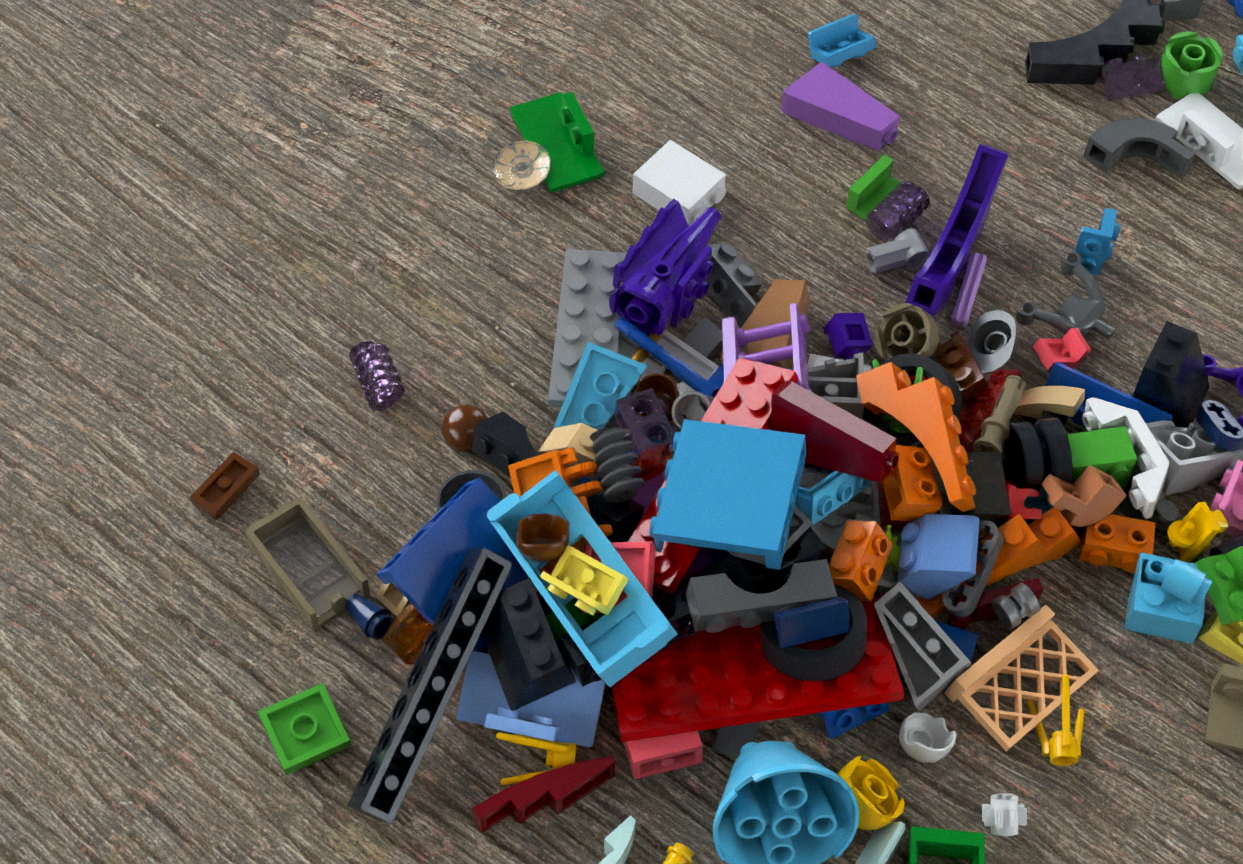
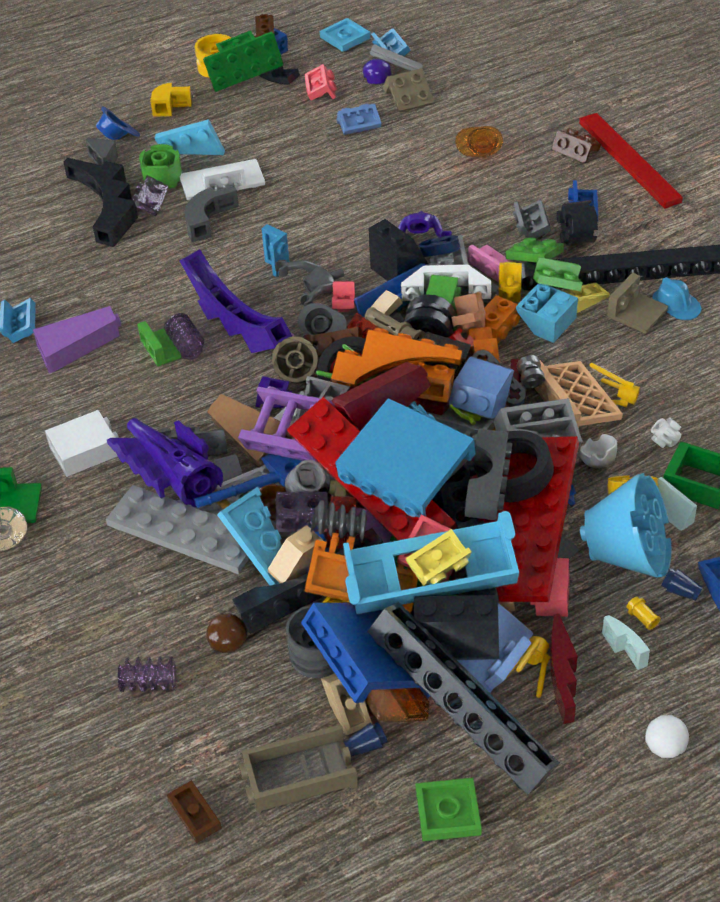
camera: 65 degrees left, 10 degrees down
(542, 537) = (390, 572): reddish brown hair -> none
(812, 622) = (520, 451): dark blue slope -> none
(860, 558) = (467, 420): orange brick -> none
(905, 250) = (217, 349): light grey piece -> none
(1184, 582) = (552, 288): medium azure brick -> none

